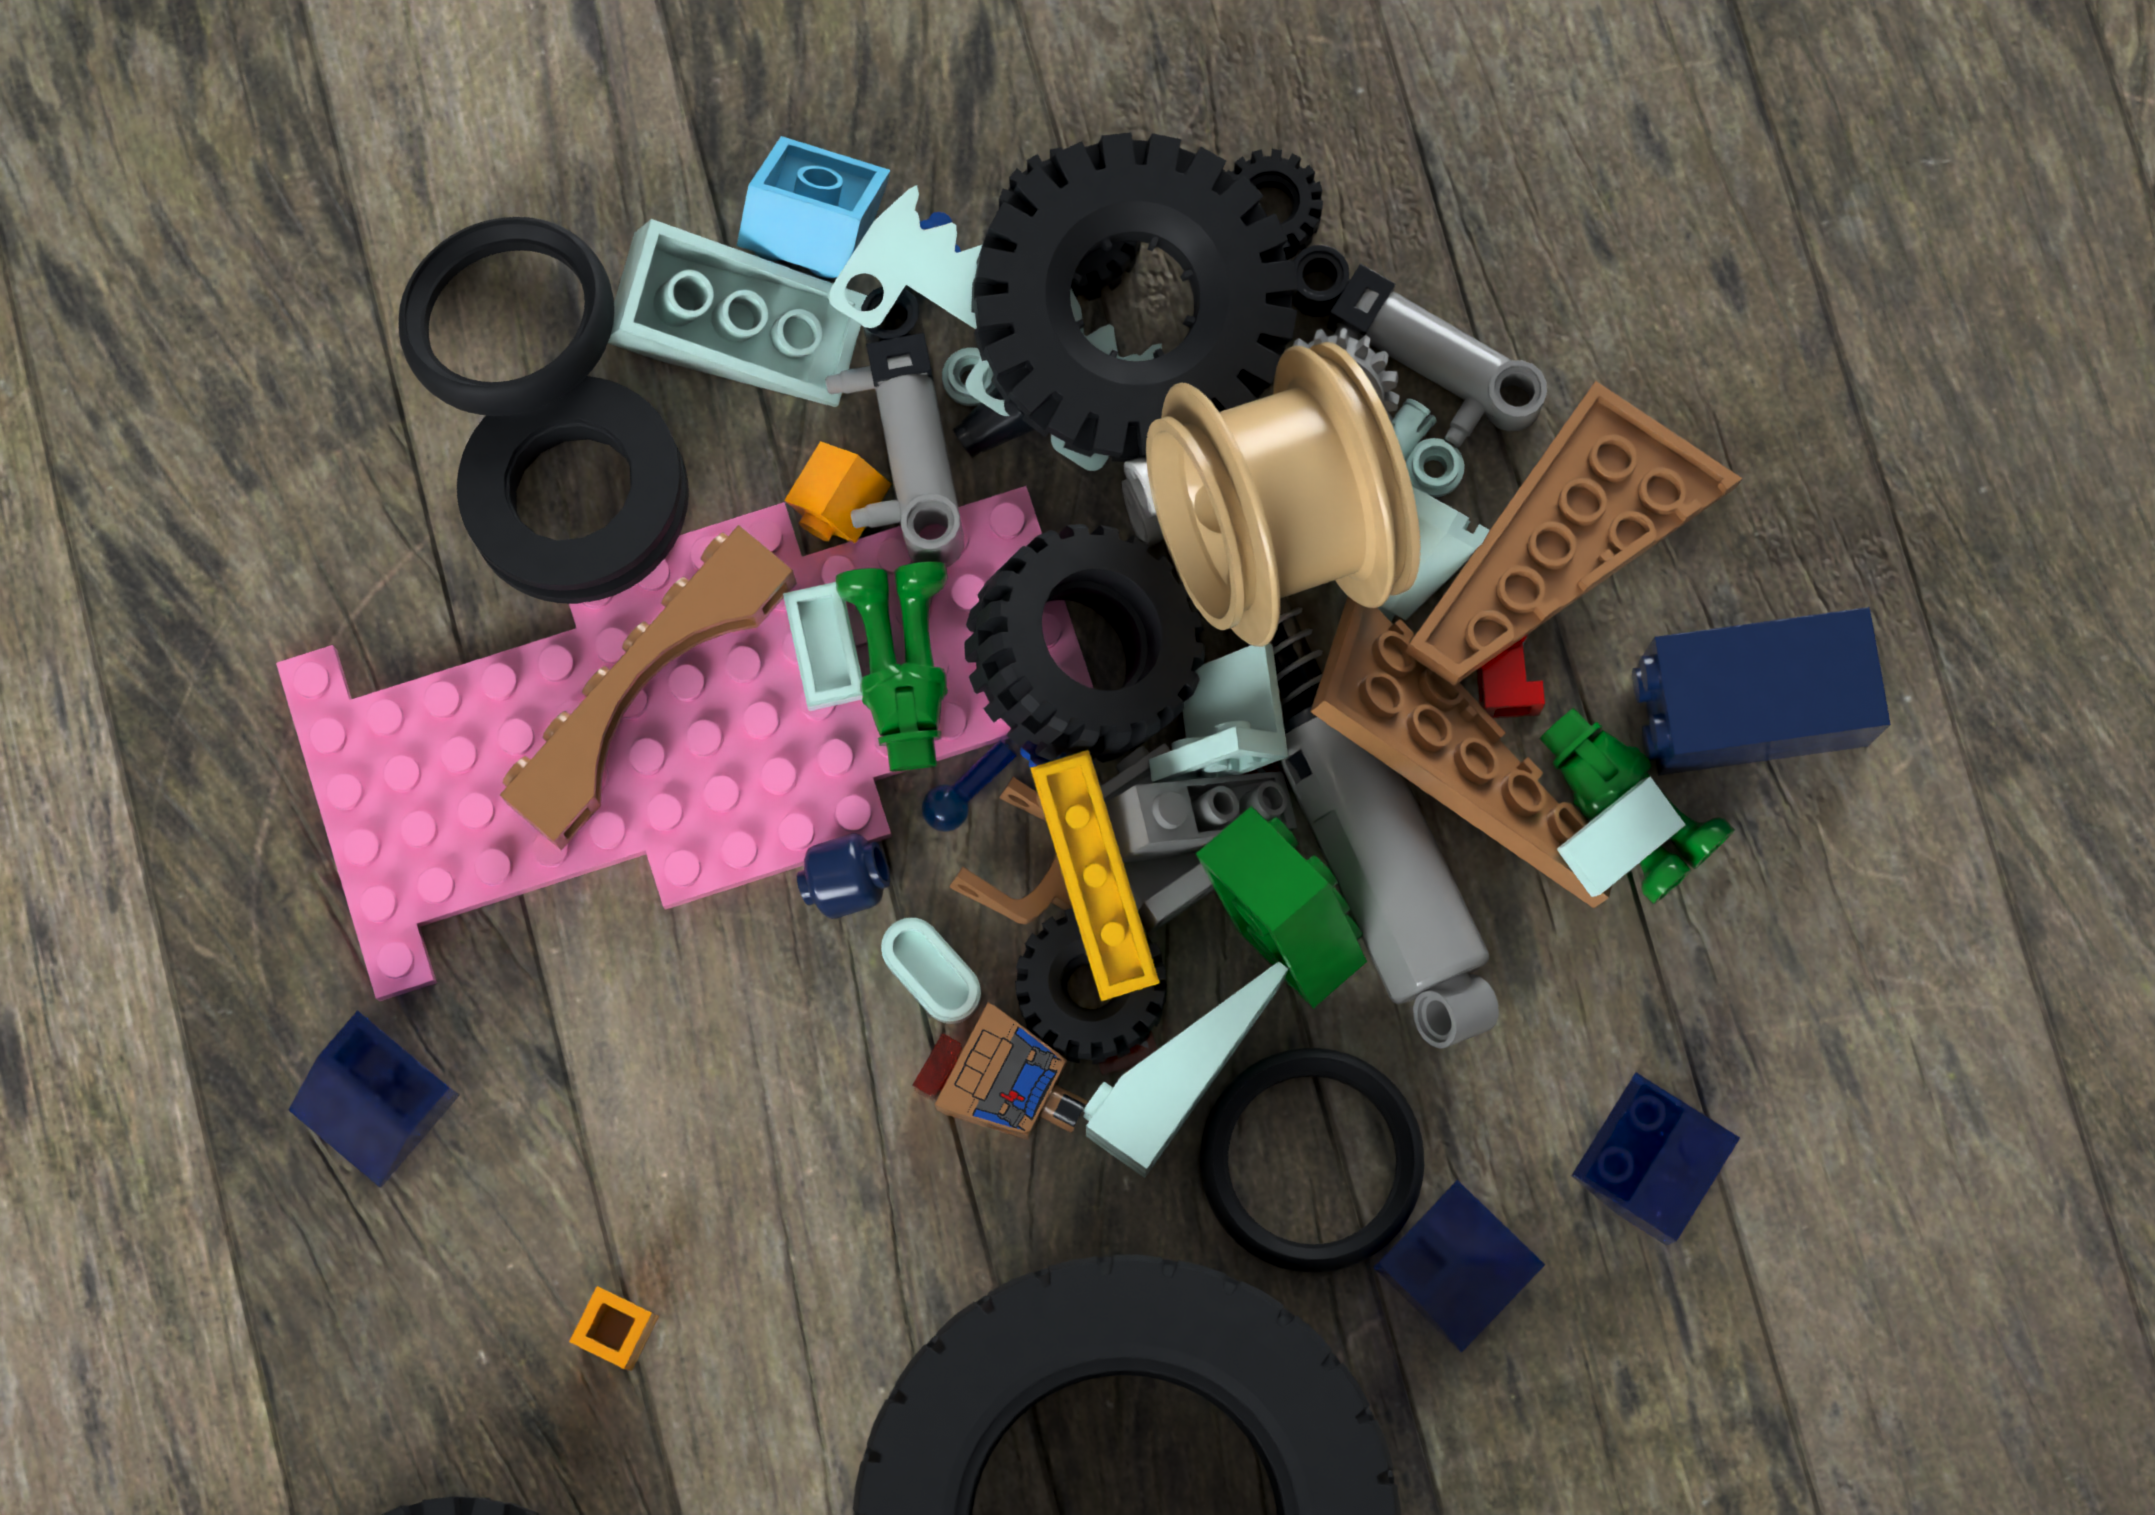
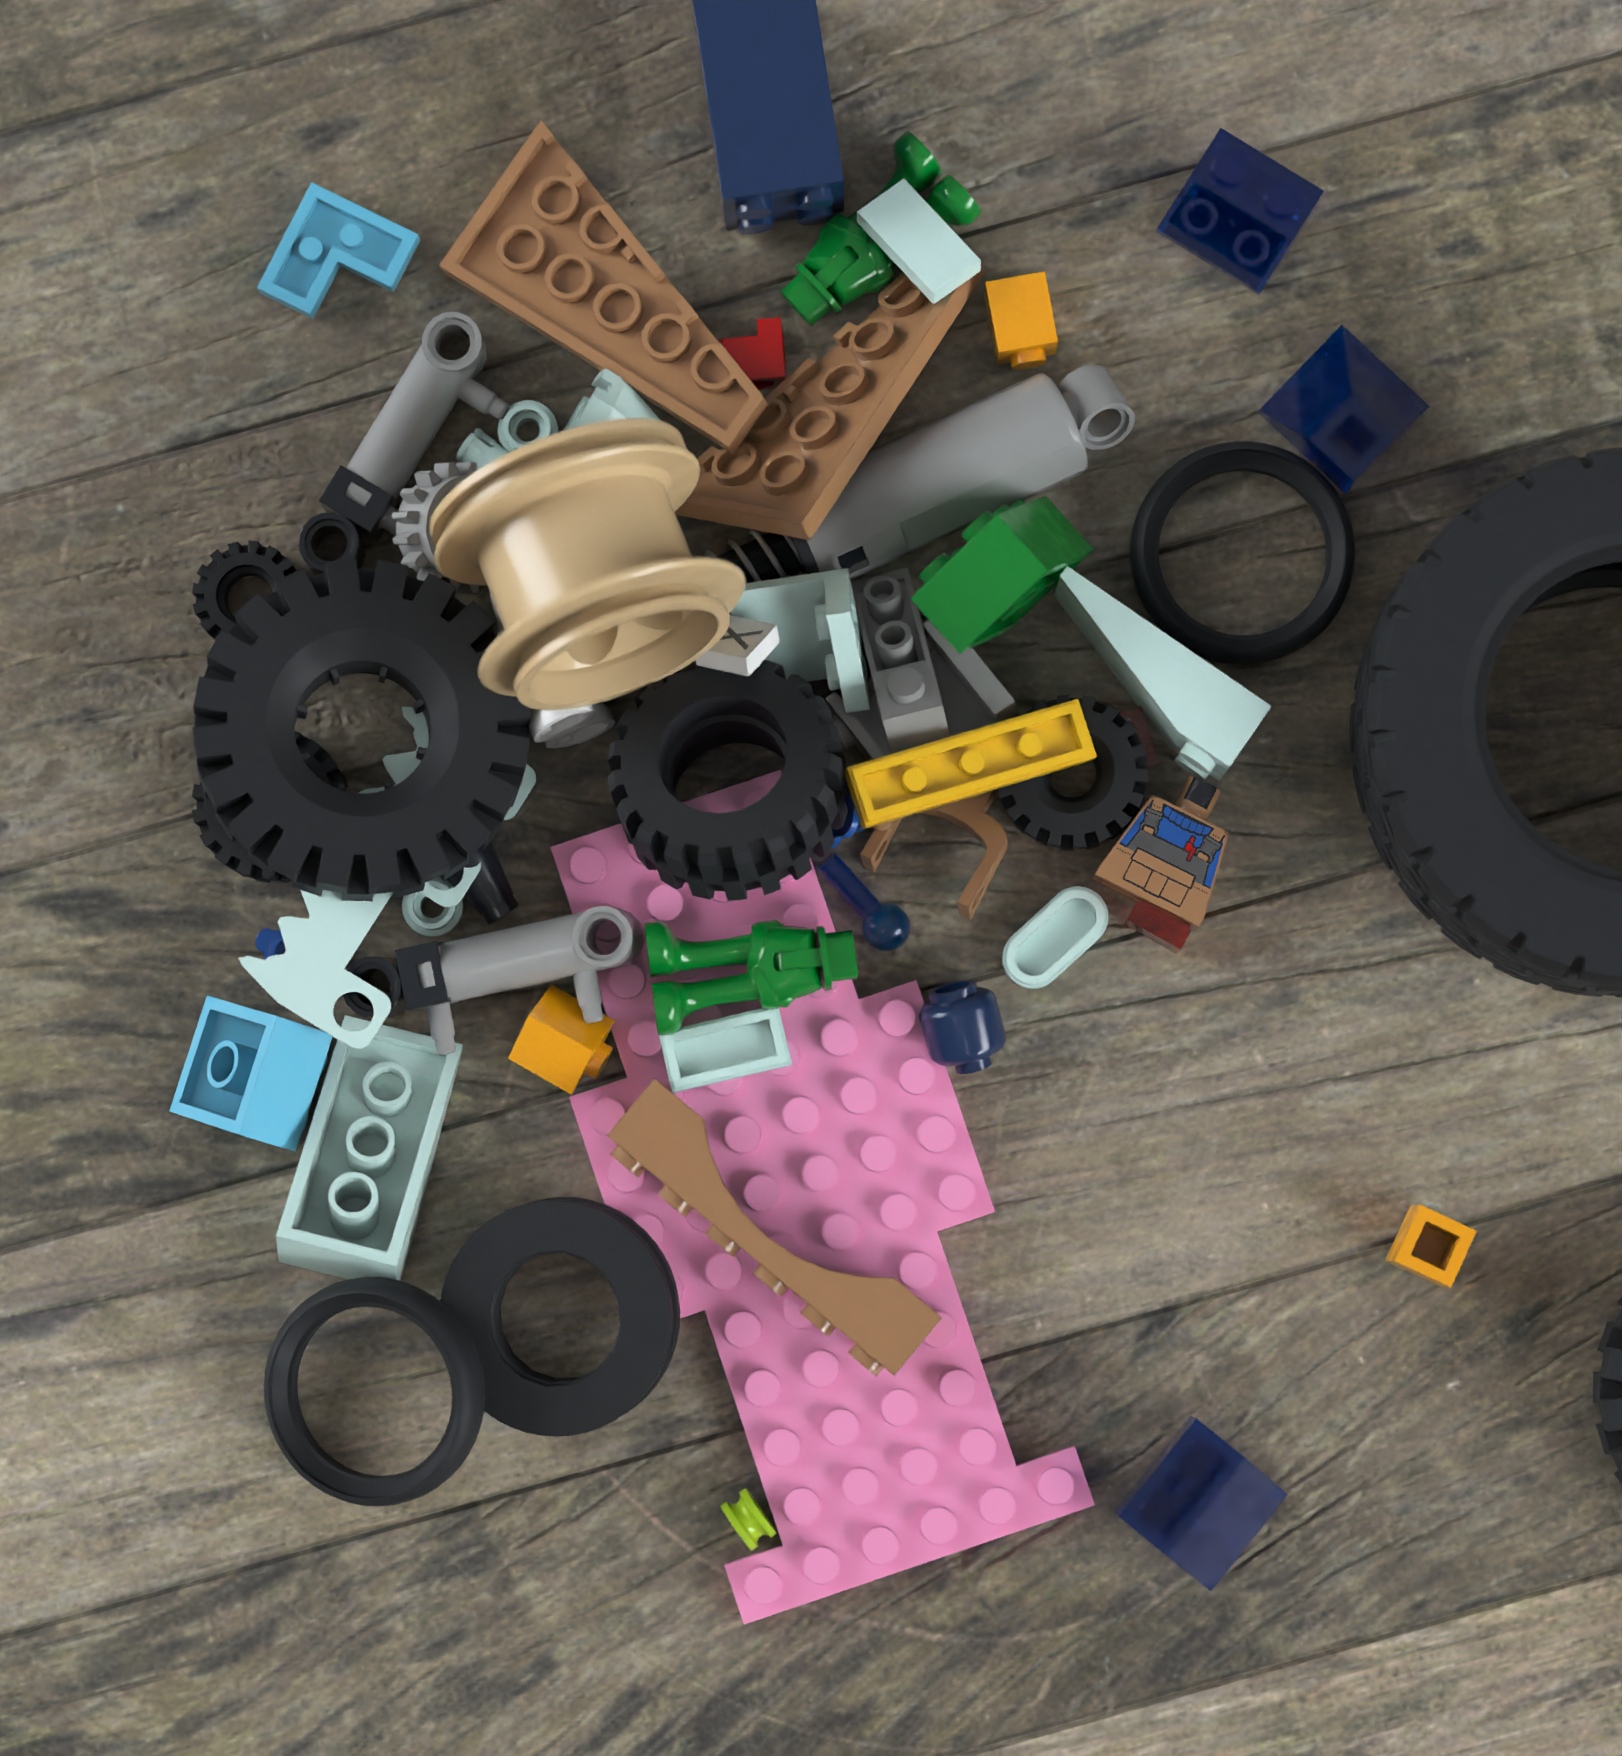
camera: 85 degrees left, 5 degrees up
(375, 667) = (748, 1519): none -> lime bush
(1212, 652) = (741, 647): none -> white tile
(1545, 942) = (1021, 320): none -> light orange brick
(1624, 279) = (331, 235): none -> medium azure plate

